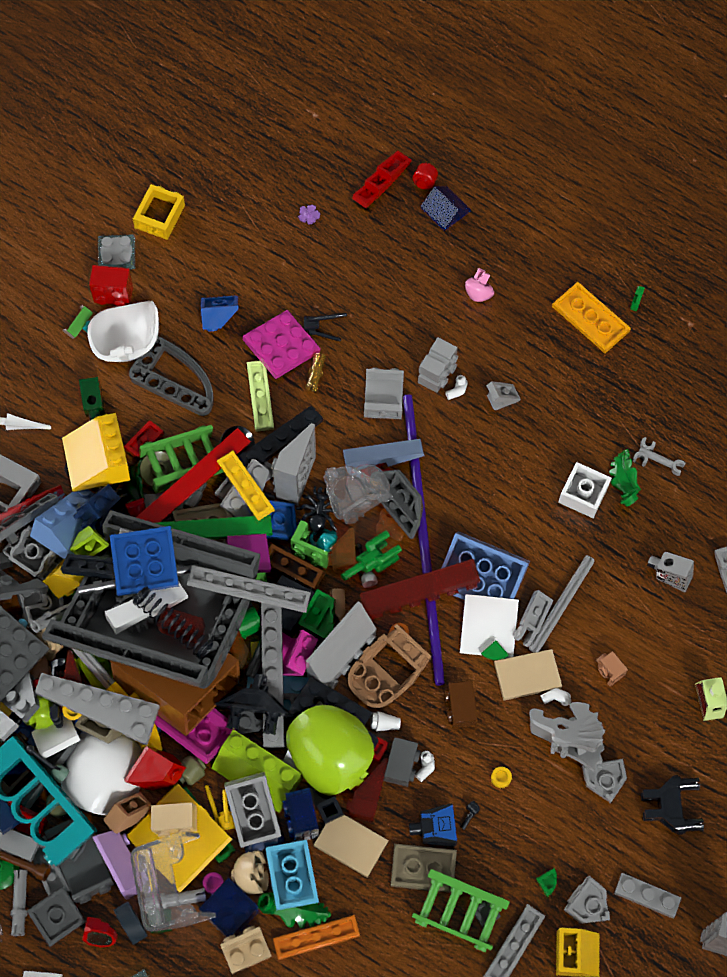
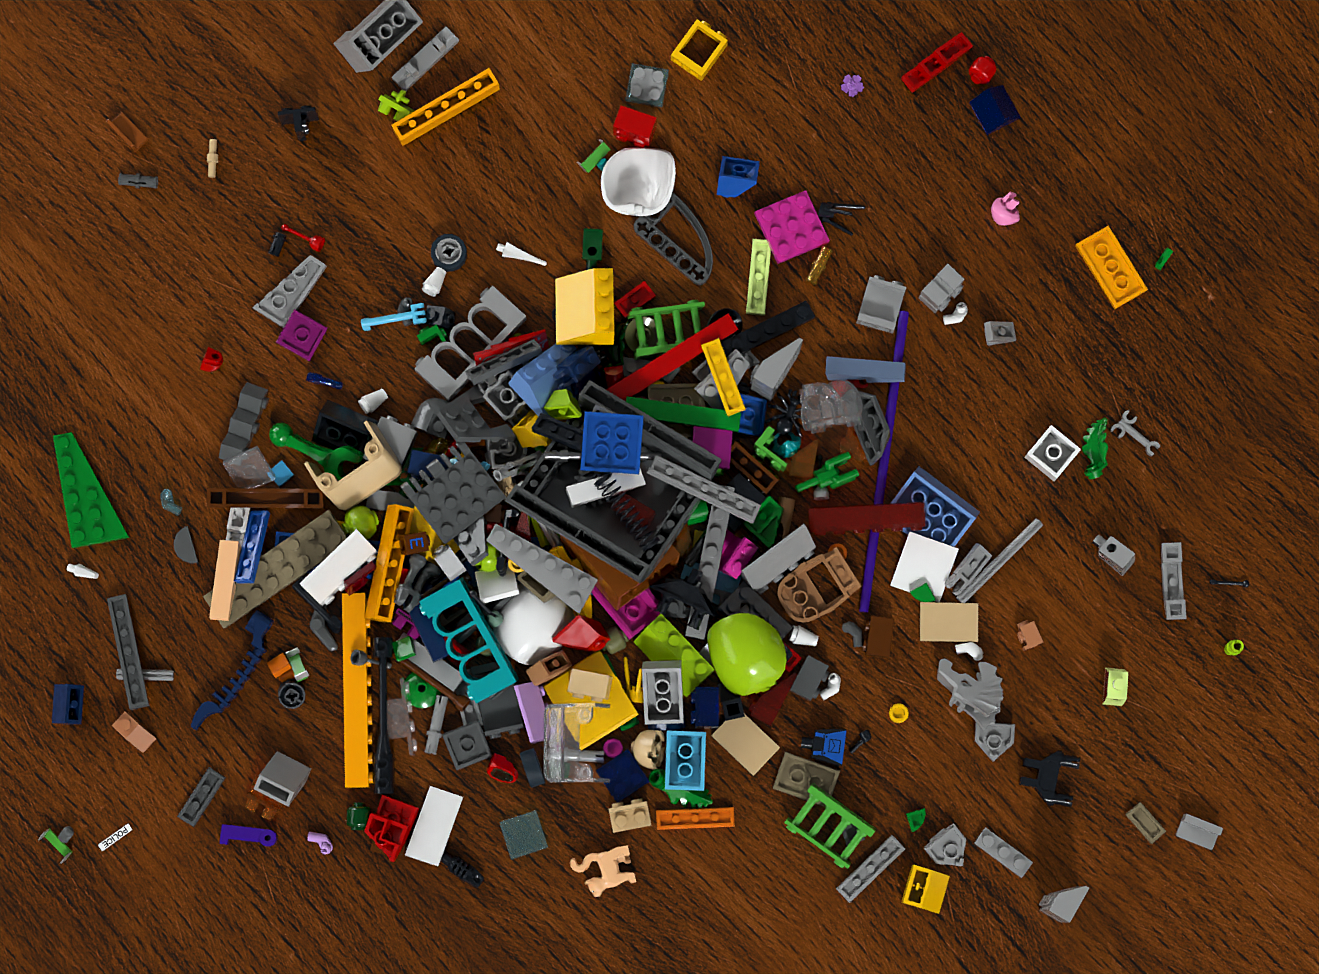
camera: 15 degrees right, 15 degrees up
(437, 705) = (851, 628): none -> dark grey arm

